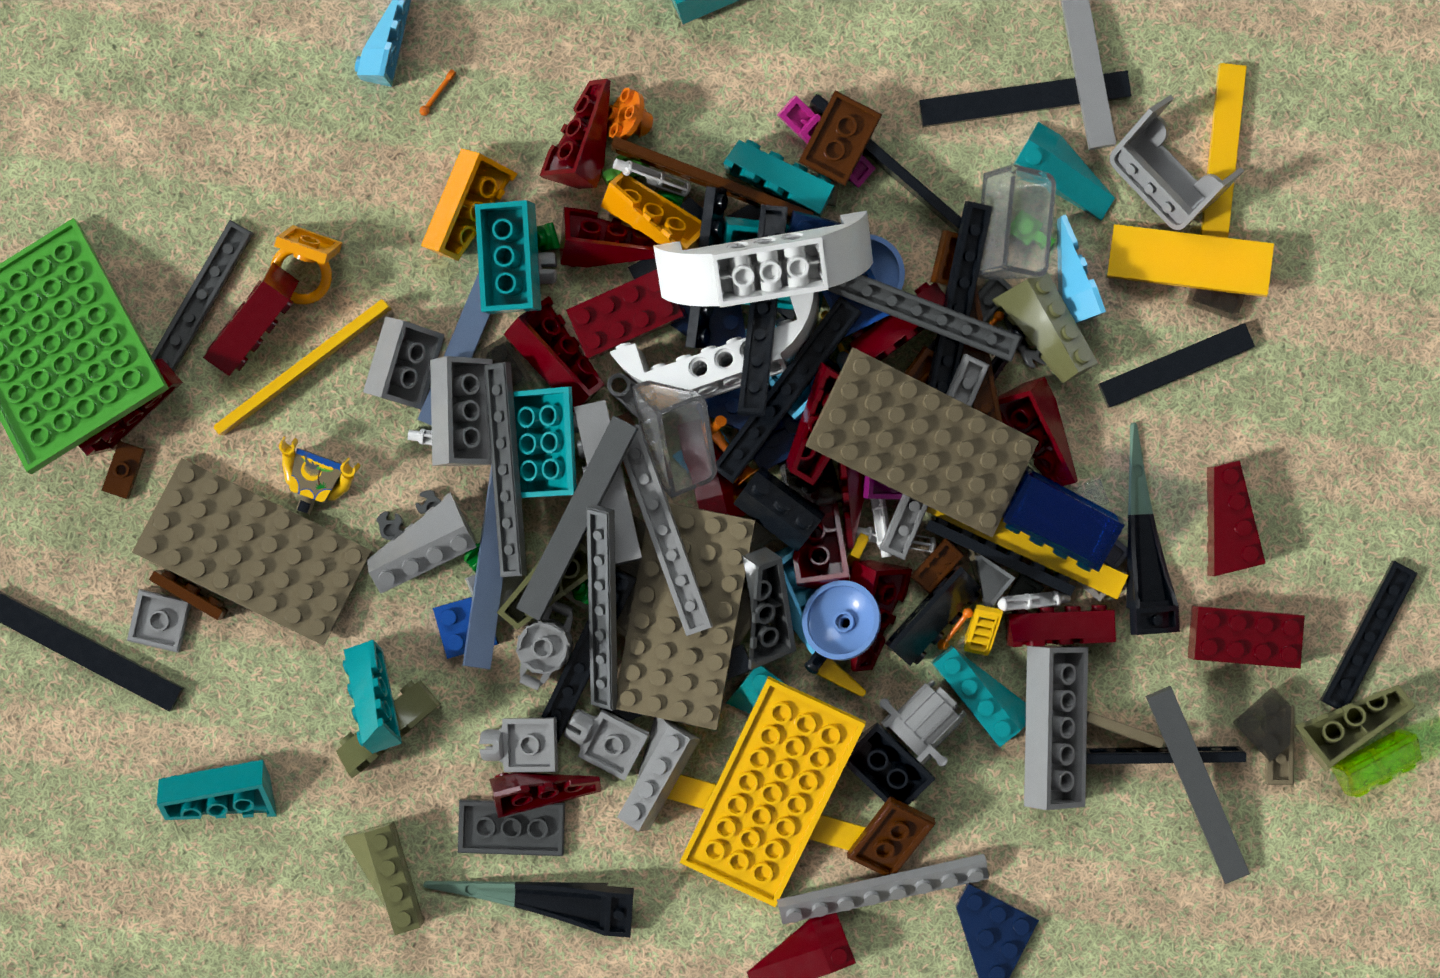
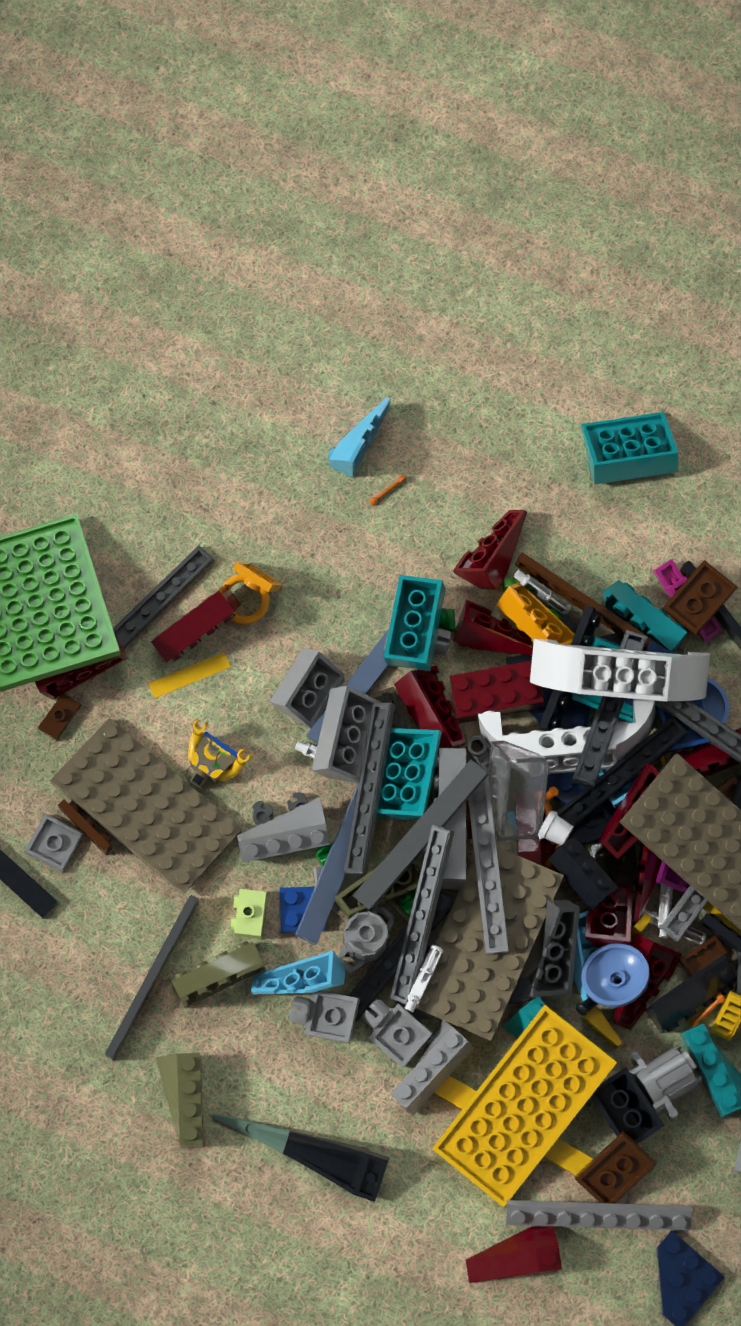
camera: 10 degrees right, 15 degrees down
(218, 792) = (65, 993): teal wedge -> none
(261, 378) = (189, 675): none -> yellow sticker
(302, 367) = (225, 671): yellow tile -> none
(313, 749) = (152, 977): none -> dark grey tile
(372, 697) = (214, 942): teal wedge -> none
(405, 648) = (249, 914): none -> yellowish green brick
(471, 182) = (381, 581): light orange wedge -> none
(484, 710) = (303, 976): none -> medium azure wedge
(523, 833) = (297, 1085): dark grey tile -> none
(528, 791) = (323, 1056): dark red wedge -> none
(622, 677) = (424, 977): none -> white piece
(628, 116) = (535, 541): orange plate -> none
(732, 468) = (555, 829): none -> white piece

